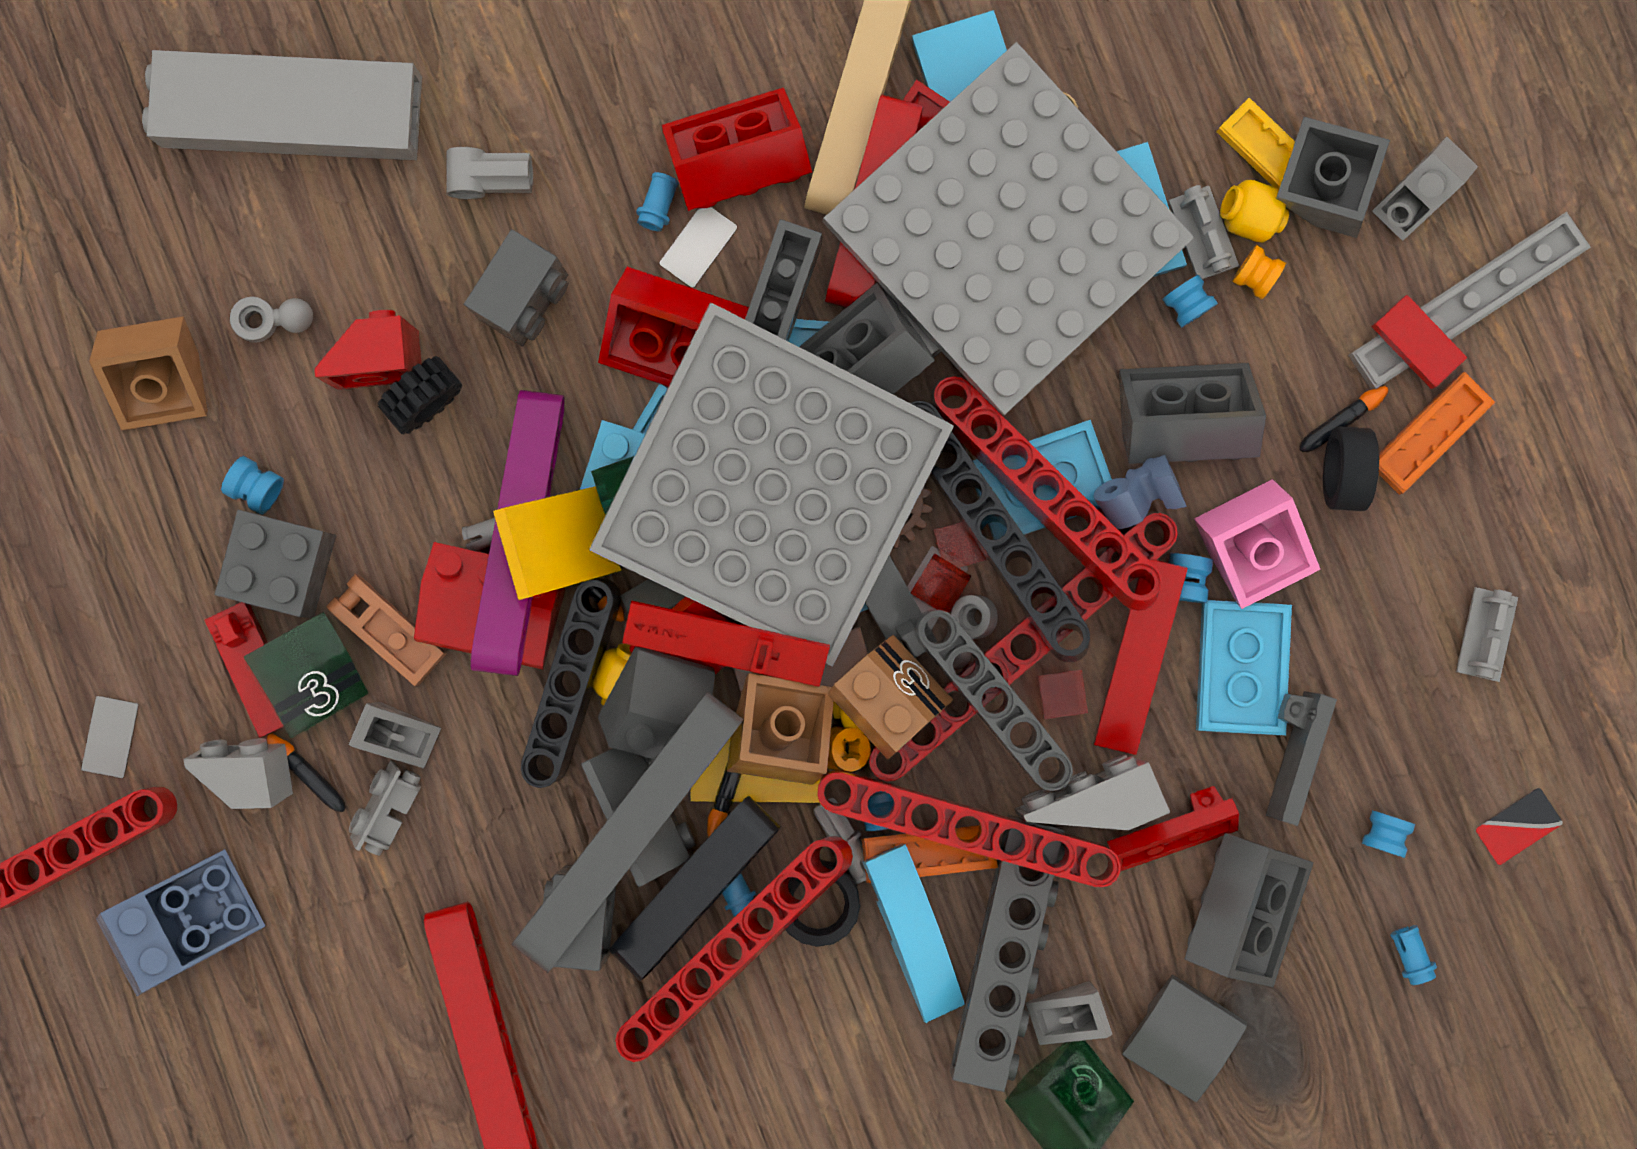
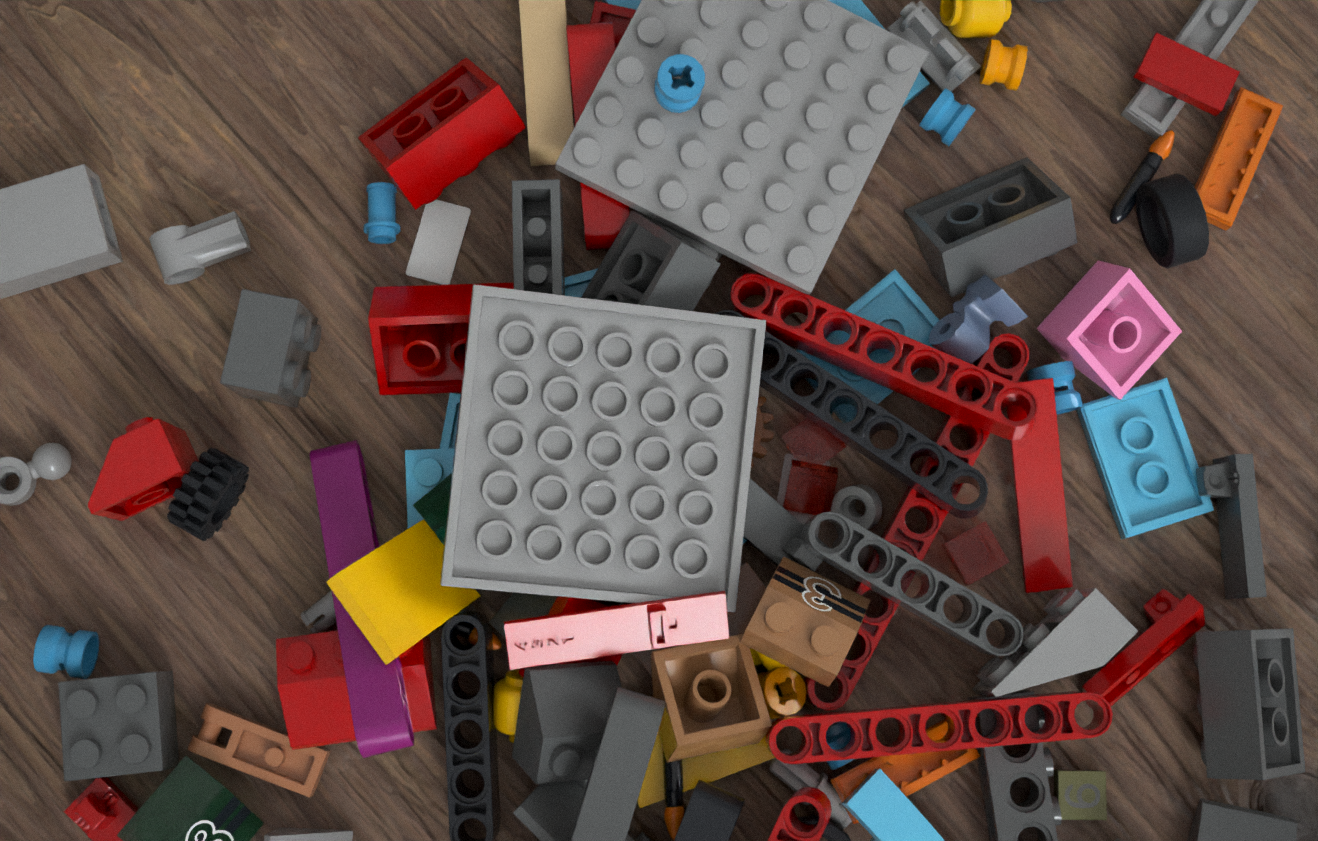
camera: 25 degrees left, 5 degrees down
(950, 193) = (675, 94): none -> dark azure wheel
(1072, 932) = (1081, 794): none -> olive tile

